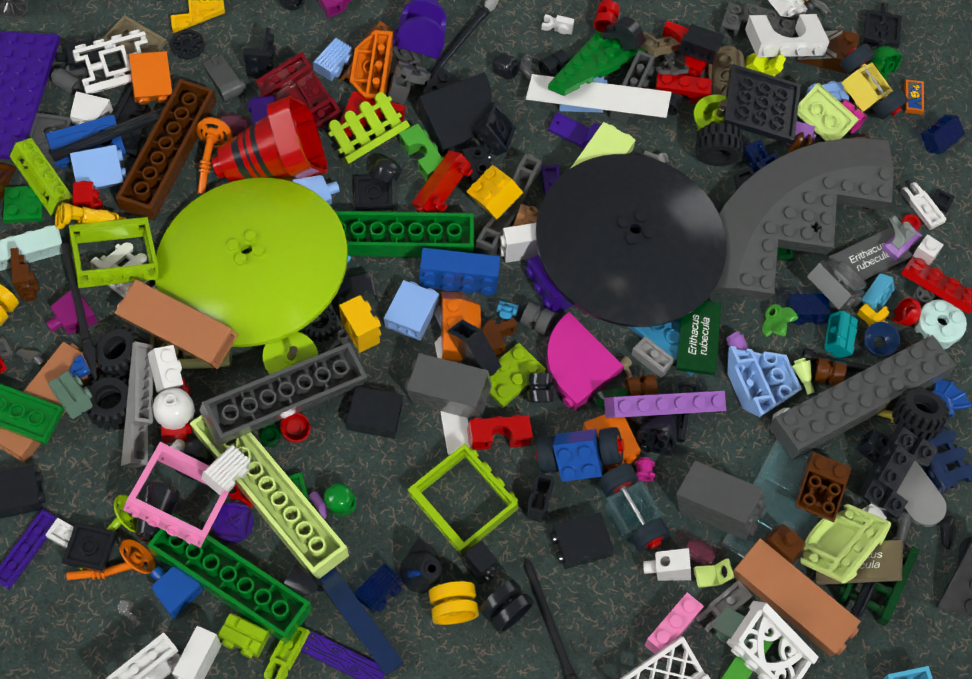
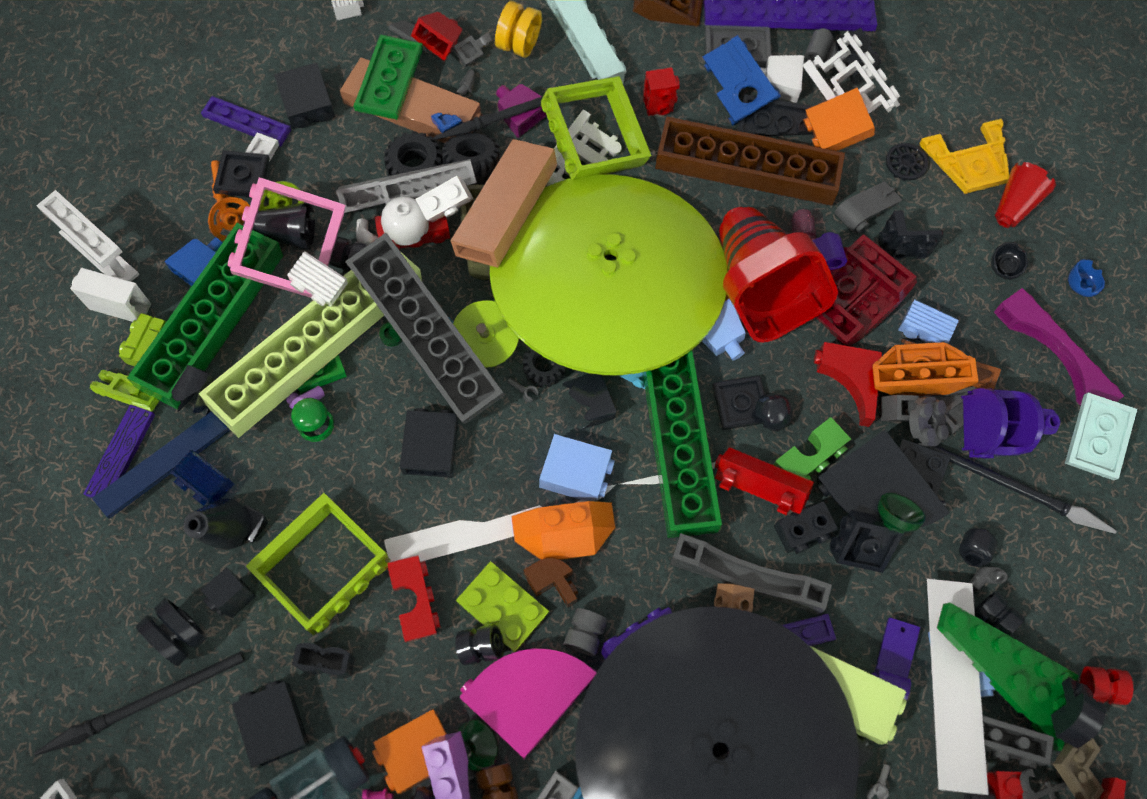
camera: 85 degrees right, 5 degrees up
(22, 205) = (652, 40): green plate -> none
(22, 277) = (553, 49): reddish brown plate -> none
(40, 175) = (685, 39): lime brick -> none
(68, 212) = (637, 93): yellow piece -> none
(70, 394) = (406, 115): sand green brick -> none
(100, 166) = (706, 95): light blue brick -> none
(105, 135) = (748, 93): black axle -> none
(123, 609) = (178, 220): clear hand -> none
(126, 25) = (900, 118): dark tan tile -> none
(209, 140) = (775, 204): orange dish -> none
(233, 522) = (280, 308): dark purple tile -> none
(295, 428) = (397, 357): red hair -> none
(360, 323) = (542, 406): yellow brick -> none
(362, 137) = (838, 383): lime fence -> none
(448, 386) = (462, 524): dark grey brick -> none
(453, 603) = (175, 566): yellow wheel -> none
(459, 271) = (635, 518): blue piece -> none
(474, 347) = (517, 548): black brick -> none
(482, 99) = (900, 513): none -> dark green piece
(494, 191) = (762, 550): yellow brick -> none
(507, 309) = (593, 590): dark azure piece -> none
(518, 243) = (691, 587): white brick -> none
(561, 24) = (1073, 618): white plate -> none
(580, 453) = (376, 707): brick -> none
(626, 362) = (535, 762): dark tan hand -> none

